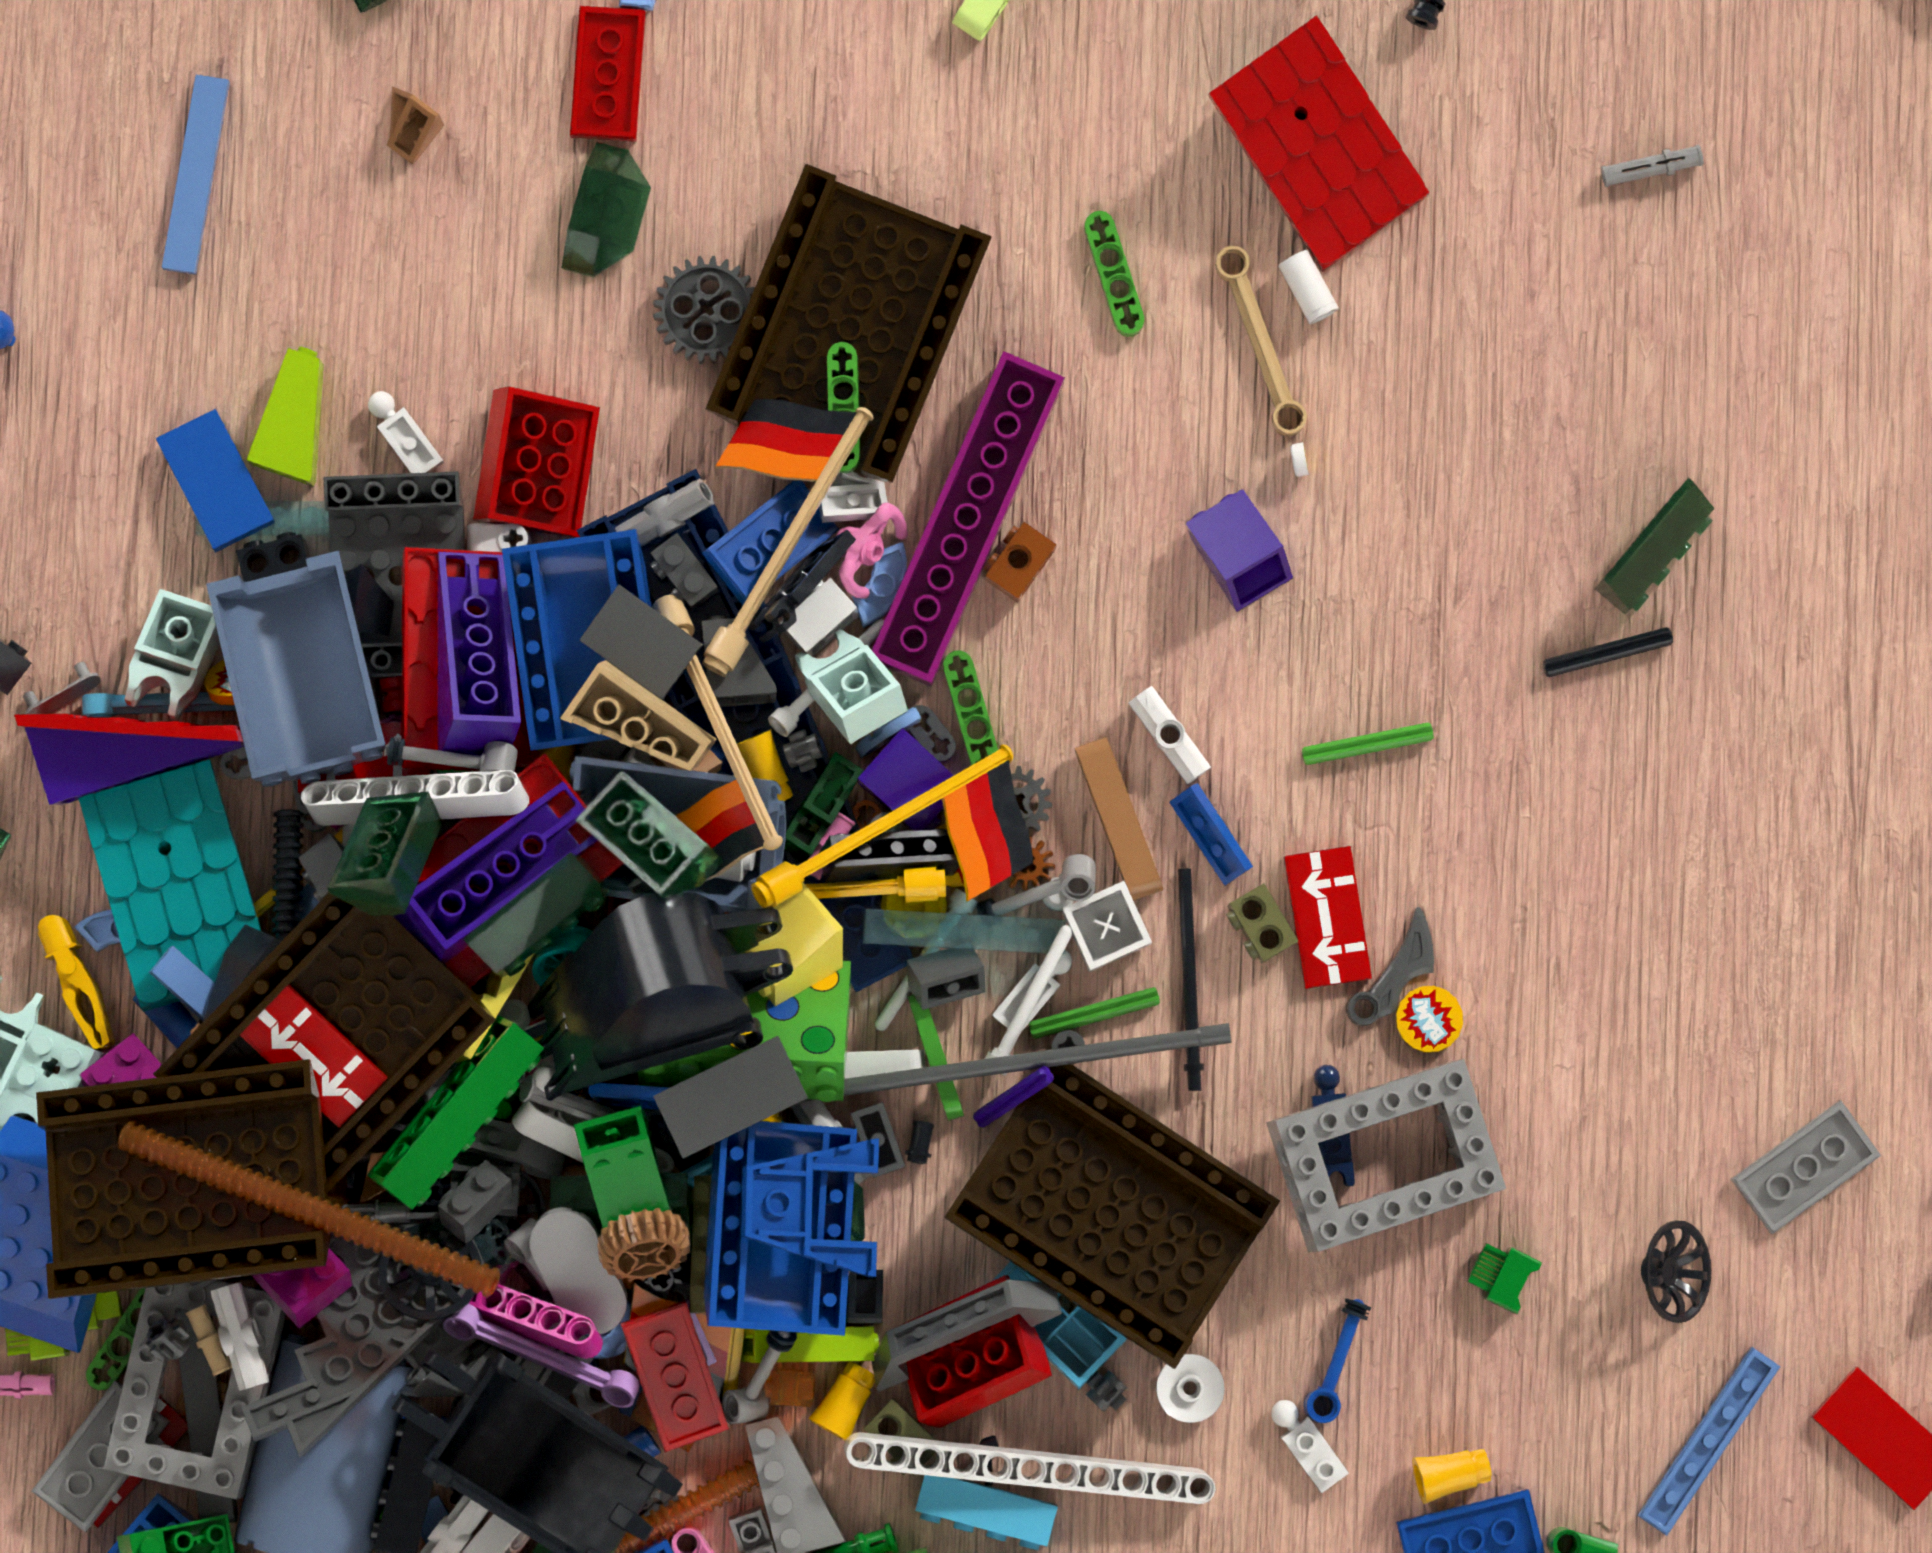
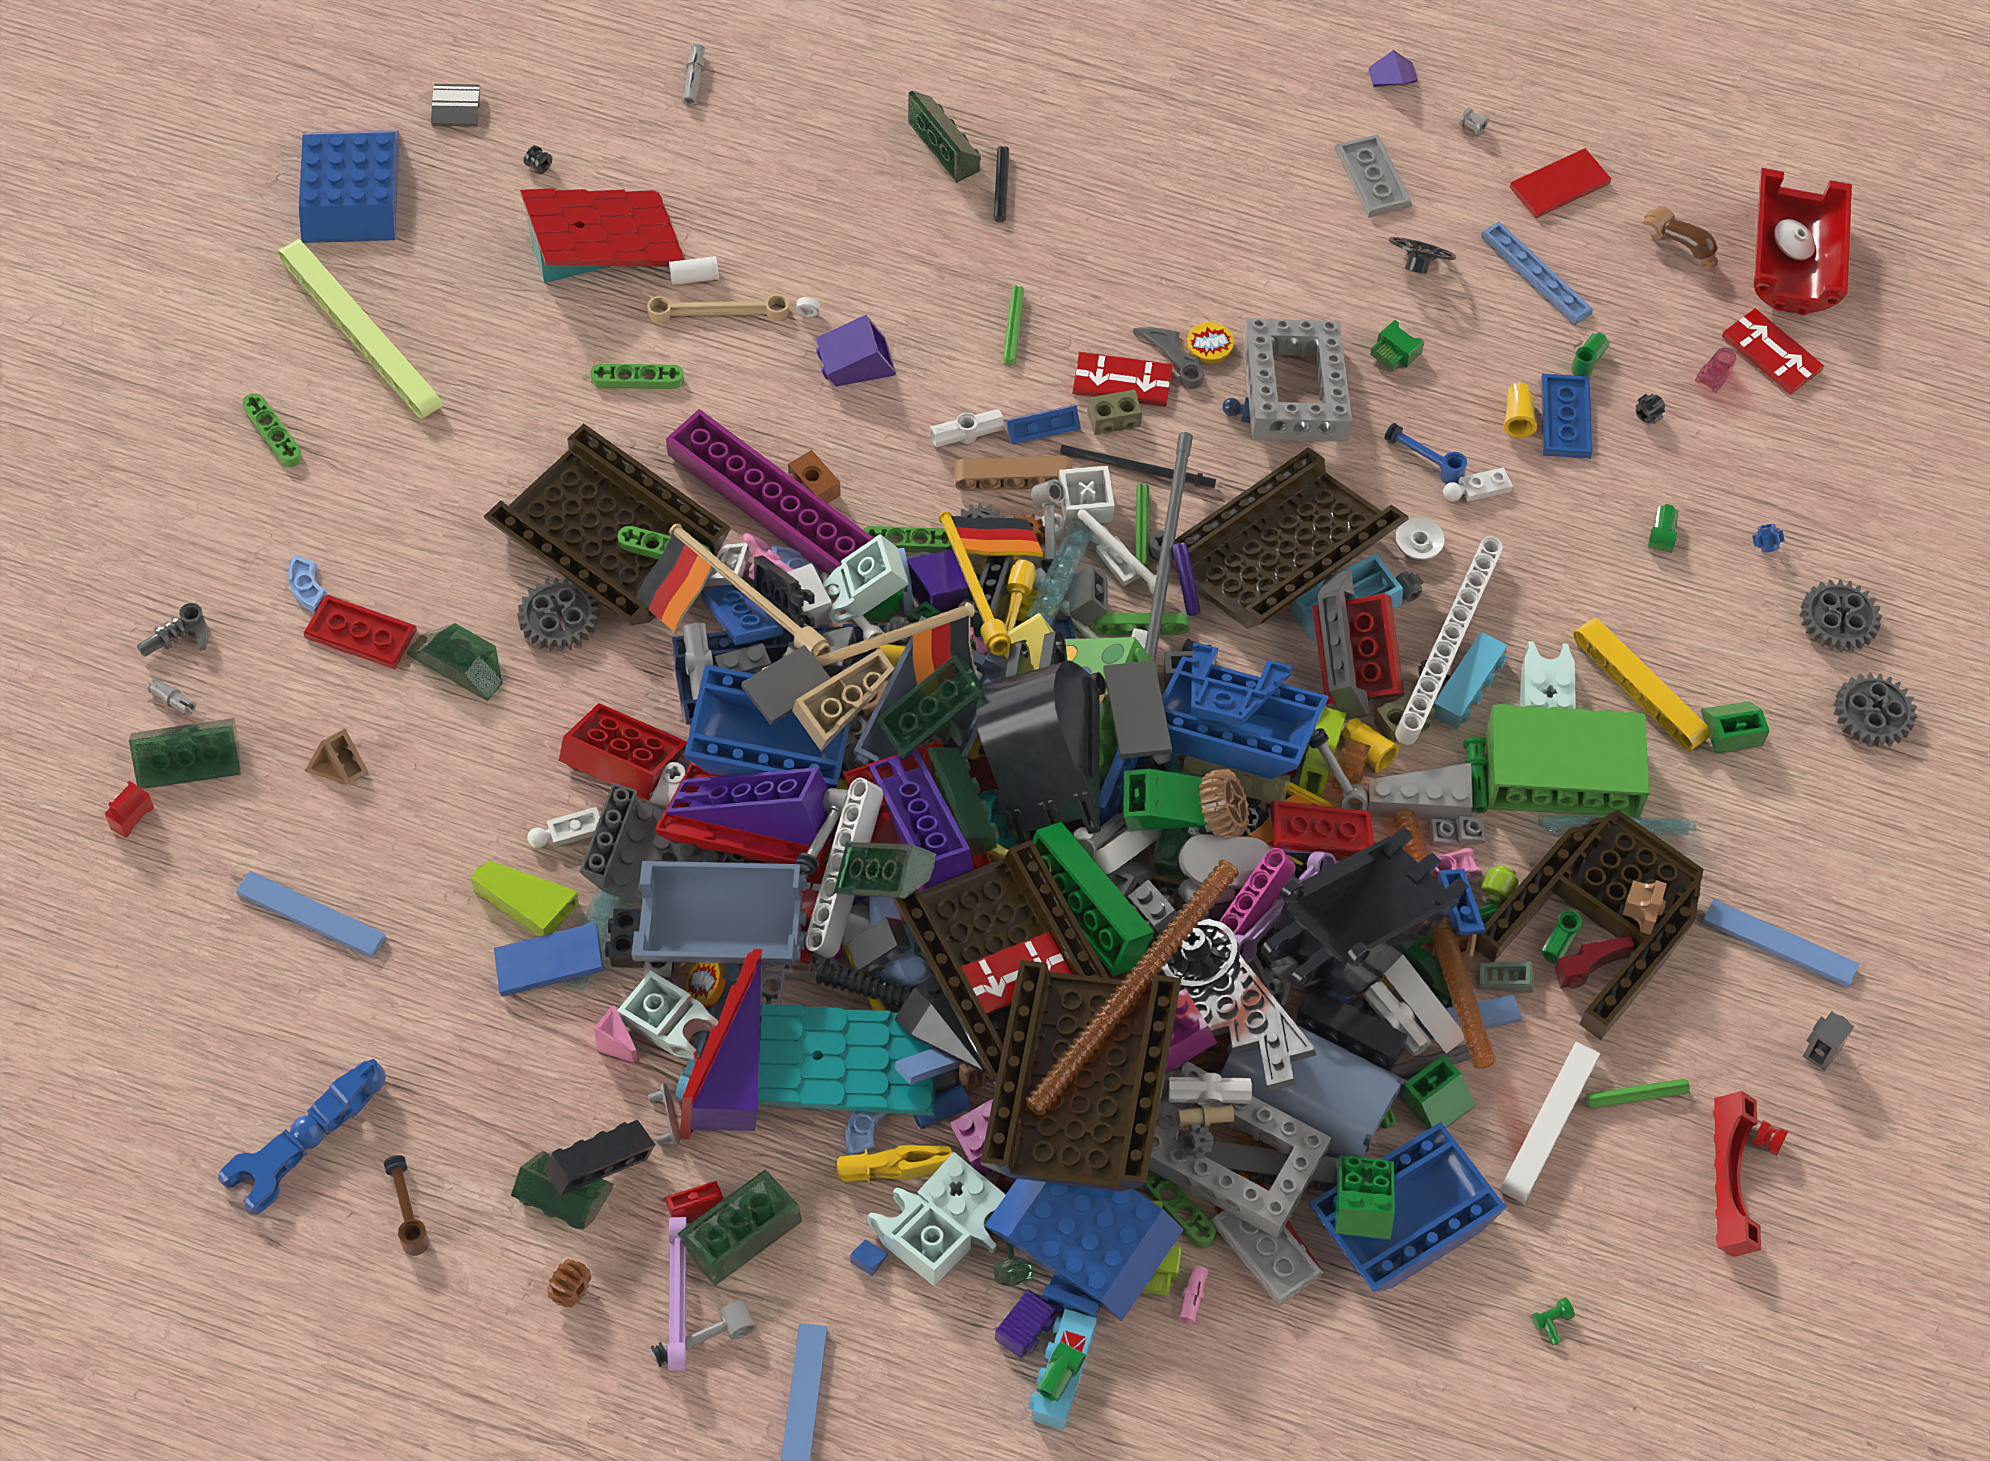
camera: 75 degrees left, 25 degrees down
(136, 596) = (613, 1037): none -> bright pink slope

